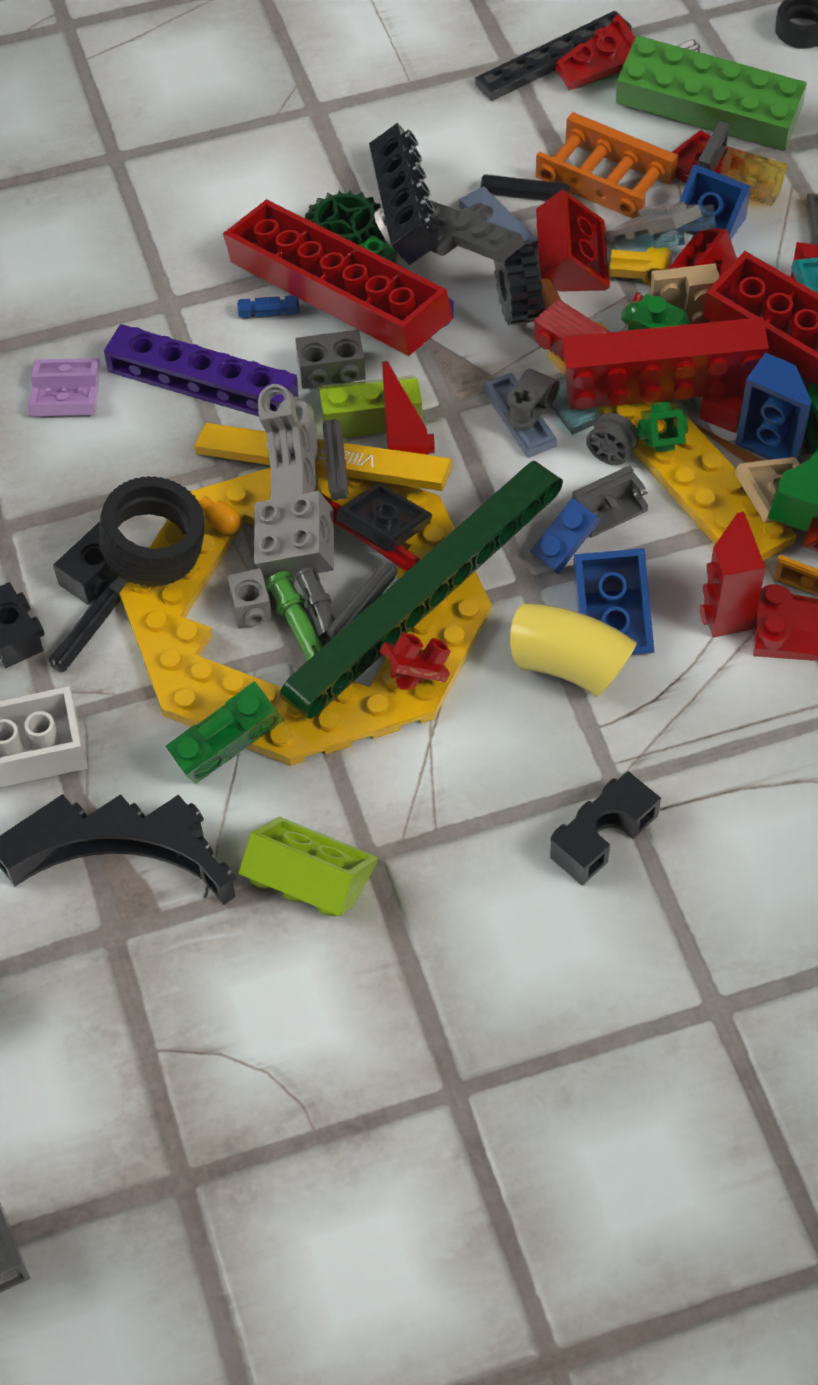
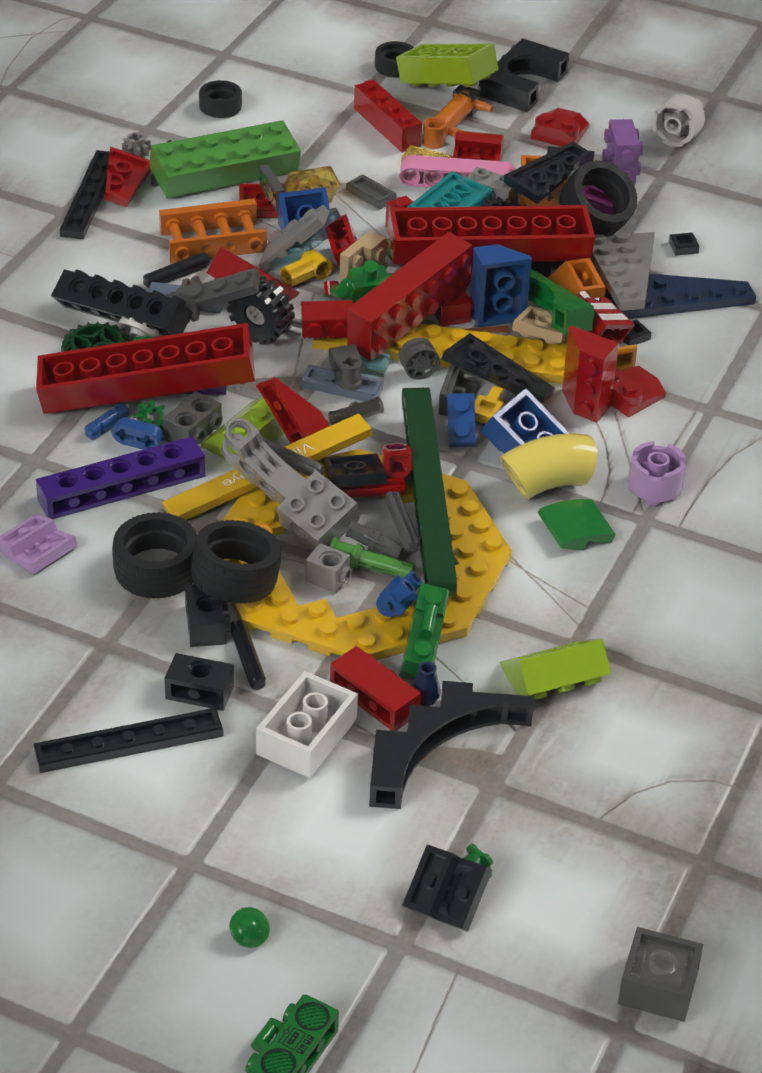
camera: 50 degrees left, 15 degrees down
(112, 444) = (154, 532): none -> black tyre
(132, 750) = (378, 688): none -> red brick
(172, 782) = (427, 683): none -> dark blue cone
(236, 674) = (398, 595): none -> blue hips
(270, 338) = (137, 433): none -> blue beam
(289, 329) = (153, 410): none -> green gear
(413, 664) = (482, 519): red hips -> none
(429, 530) = (397, 460): none -> red rock
(487, 454) = (364, 408): none -> clear smoke pin
(533, 732) = (576, 523): none -> green slope
(615, 537) = (487, 406): none -> yellow plate
(622, 805) = (678, 550): black arch -> none
(653, 26) = (136, 144): none -> light grey gear
(668, 503) = (491, 365): none -> black wing
(673, 431) = (447, 328): green brick -> none
(675, 740) = (656, 472): none -> lavender brick

